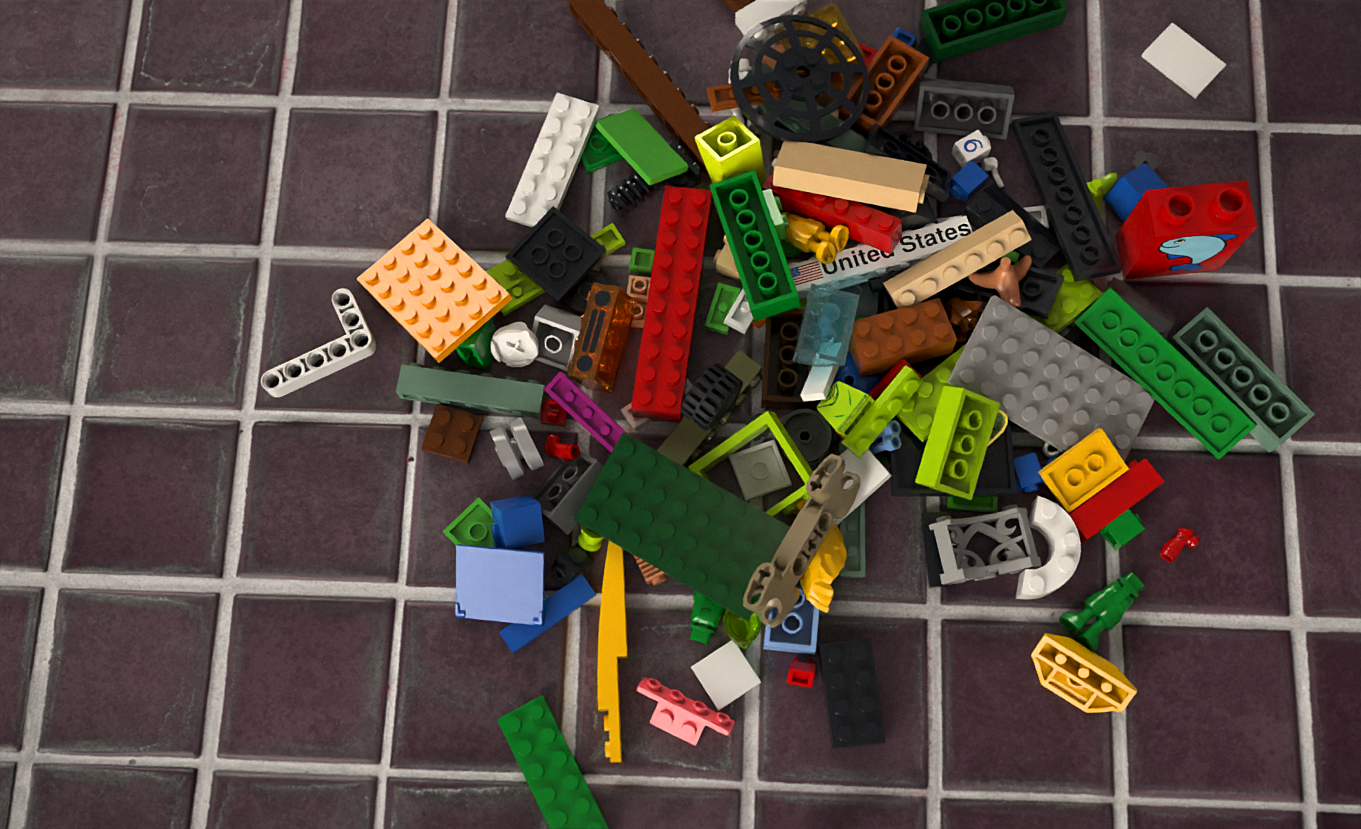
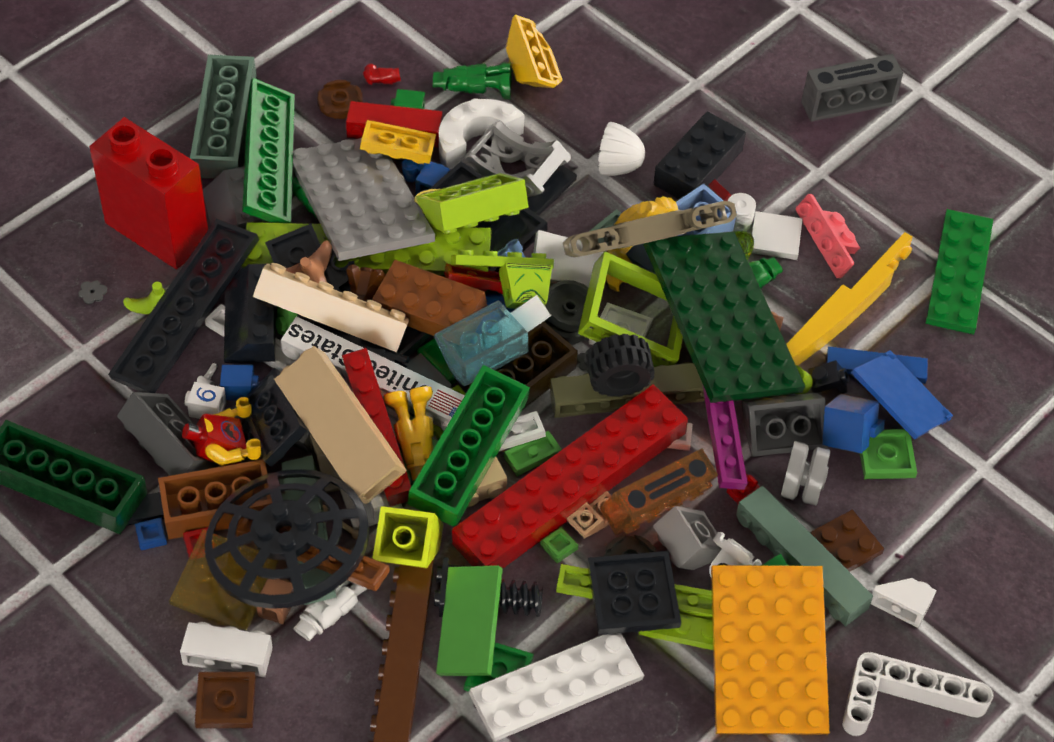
camera: 145 degrees left, 20 degrees down
(375, 418) = (904, 599): none -> white slope
(564, 451) = (766, 455): red arm -> none
(769, 664) = (745, 209): none -> white piece
(780, 220) = (426, 446): bright green plate -> none
(916, 634) = (620, 151): none -> white hair
(926, 123) = (221, 436): none -> torso
(1131, 189) = (130, 269): blue plate -> none
(1183, 492) = (336, 98): none -> reddish brown tile

